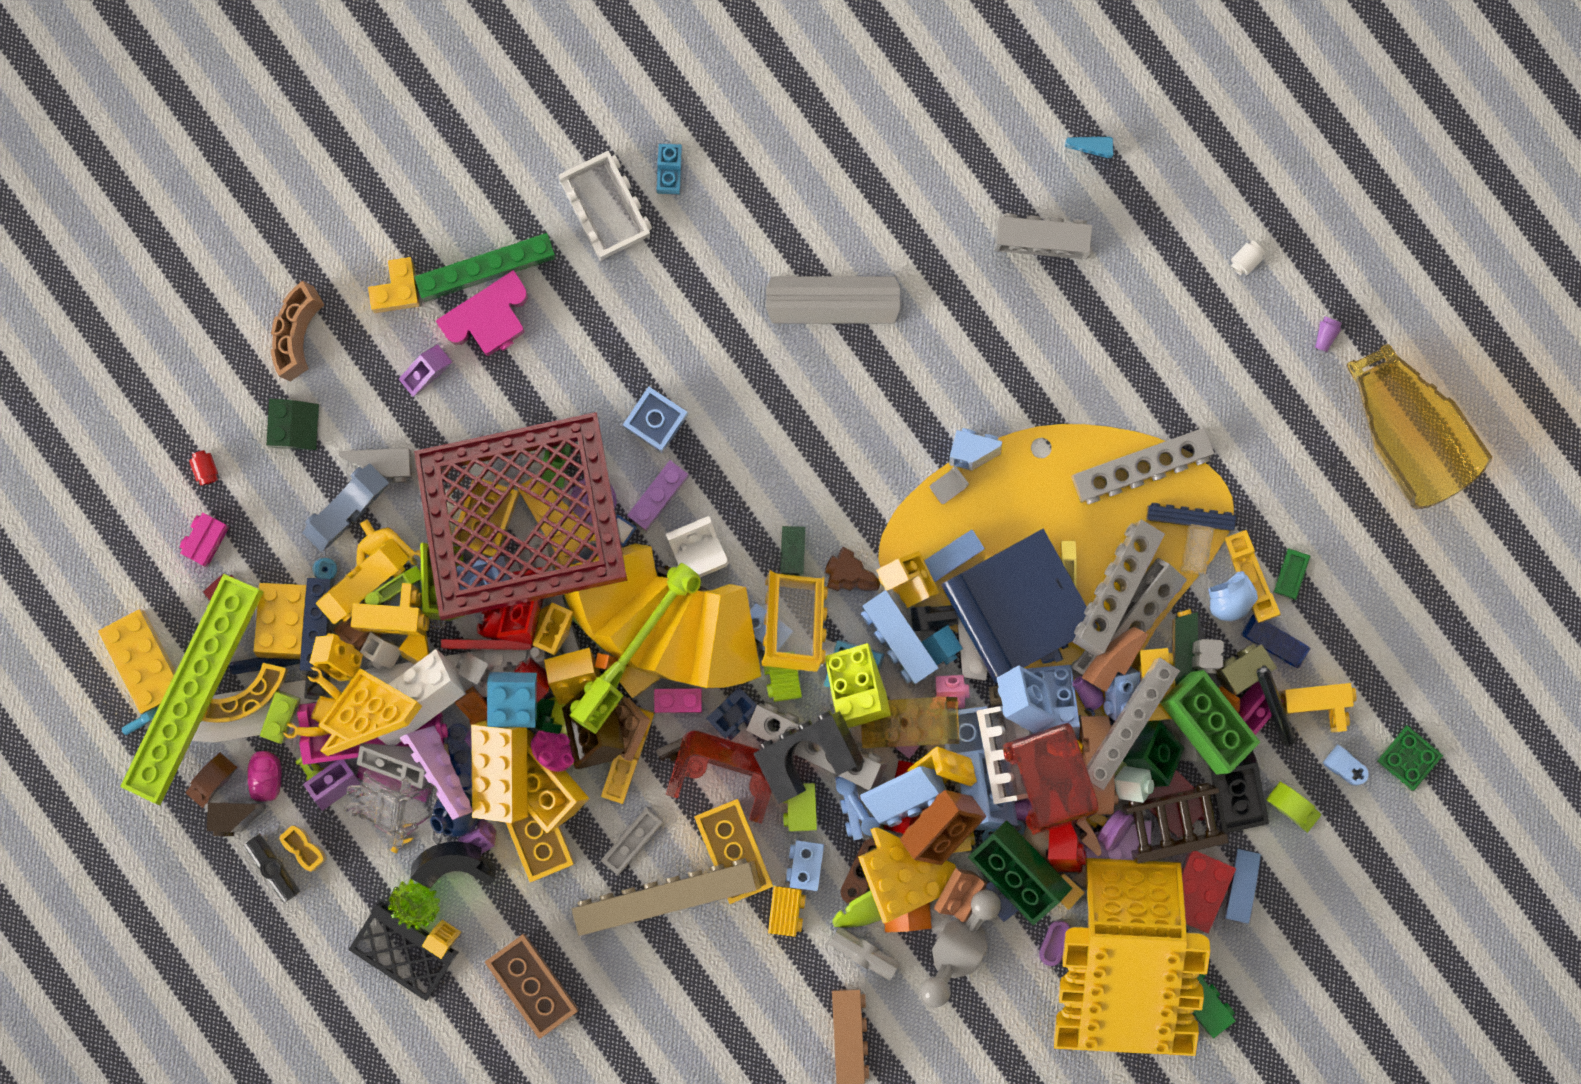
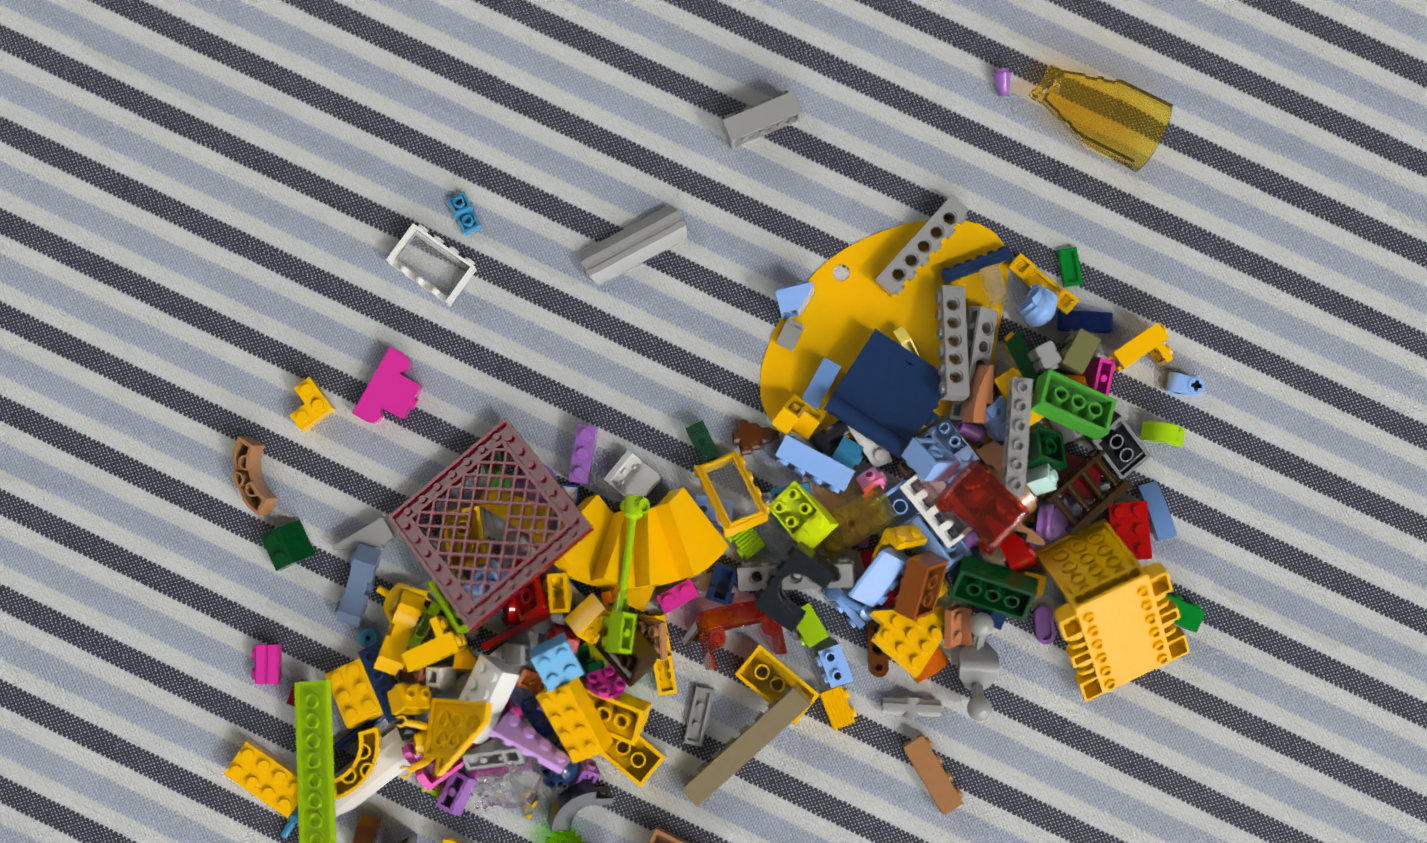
camera: 30 degrees left, 0 degrees up
(204, 468) = (239, 611): red brick -> none
(264, 776) = (404, 813): dark pink piece -> none
(280, 713) = (391, 760): lime brick -> none
(425, 370) = (364, 453): medium lavender slope -> none
(485, 267) = (368, 355): green brick -> none
(655, 419) = (551, 400): light blue brick -> none
(859, 913) = (891, 680): lime brick -> none
(1093, 145) = (765, 33): dark azure slope -> none
(1247, 258) = (916, 57): white brick -> none
(1275, 705) = (1113, 368): black axle -> none
(1409, 758) = (1225, 354): green tile -> none

